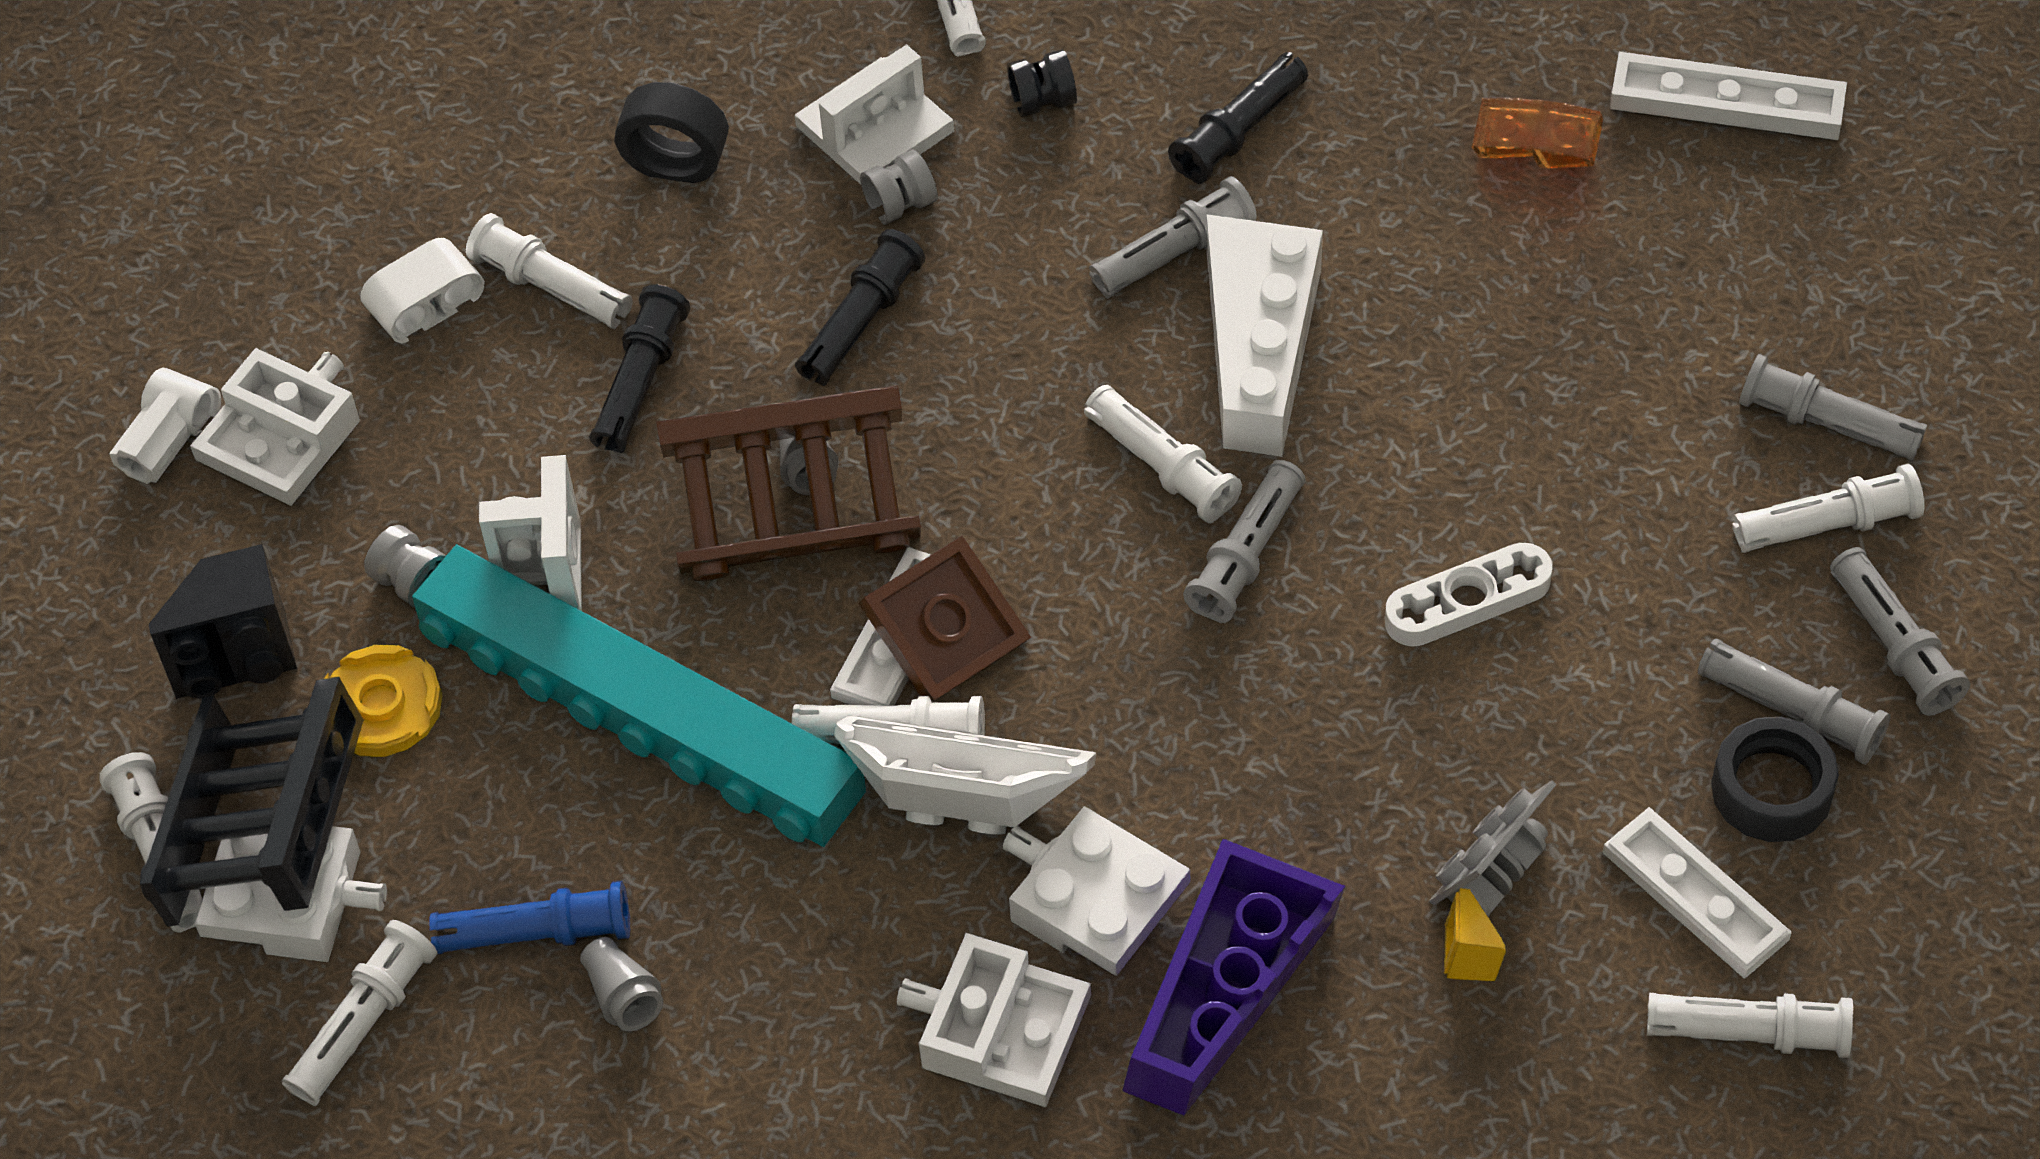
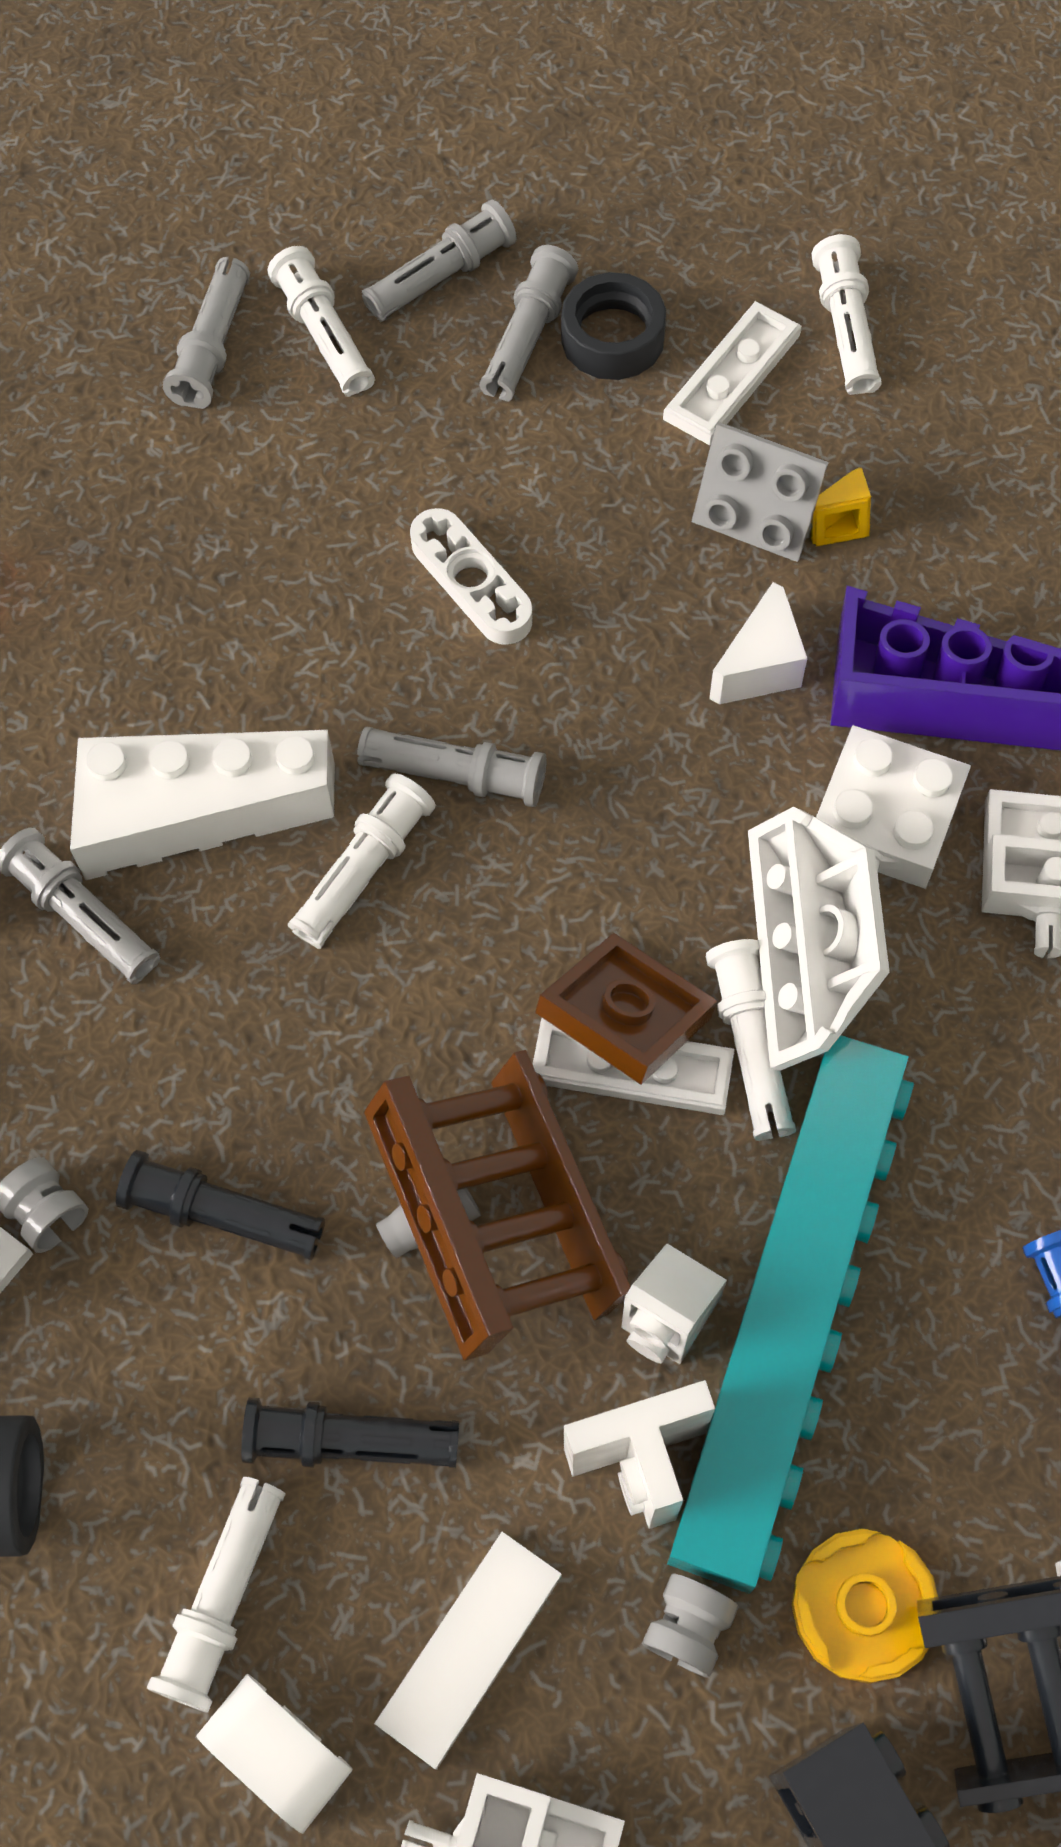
camera: 105 degrees left, 10 degrees up
(451, 428) = (468, 1650): none -> white tile
(658, 589) = (670, 1305): none -> white slope
(1310, 824) = (764, 654): none -> white slope

